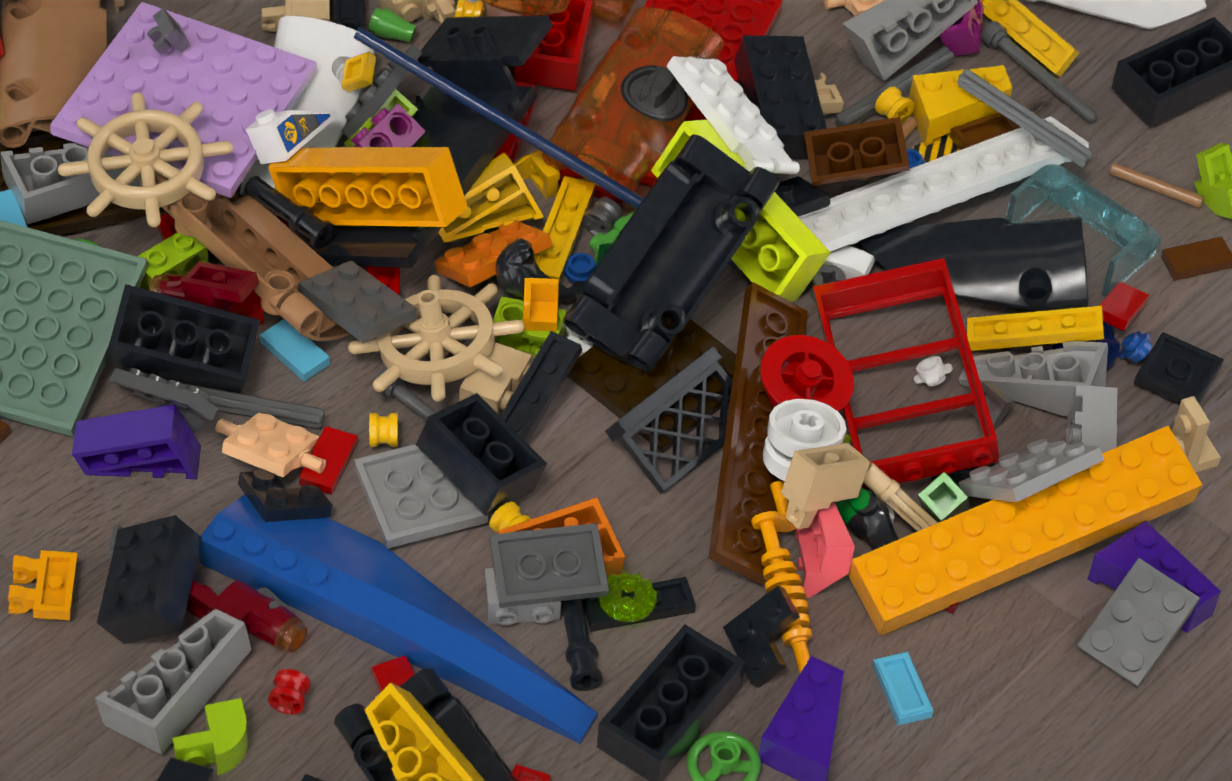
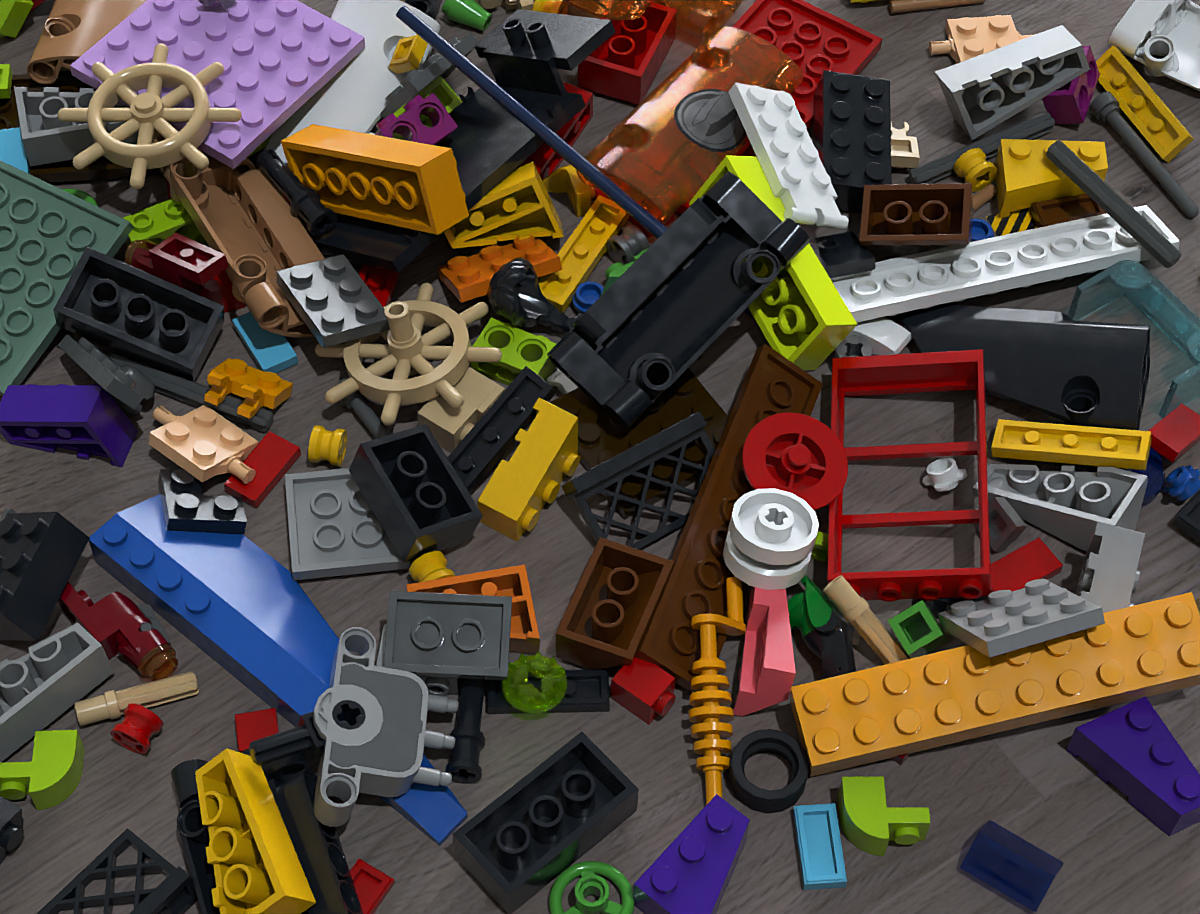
camera: 15 degrees right, 5 degrees up
(262, 675) = (150, 694): none -> tan axle
(283, 133) = (304, 107): white slope -> none
(305, 389) = (254, 385): none -> light orange plate
(499, 653) = (364, 730): none -> piece
(540, 304) = (525, 334): light orange panel -> none
(576, 421) = (533, 473): none -> yellow wedge
(679, 522) = (611, 606): none -> reddish brown slope
(722, 587) = (643, 690): none -> red brick
(753, 634) = (662, 754): black plate -> none
(822, 477) = (777, 586): tan hinge -> none
(846, 612) = (774, 742): none -> black tyre
(940, 659) = (871, 823): none -> lime brick
(1020, 433) = (1024, 565): none -> red tile
(1065, 675) = (1011, 865): none -> clear blue panel
(1138, 623) = (1110, 819): dark grey plate -> none

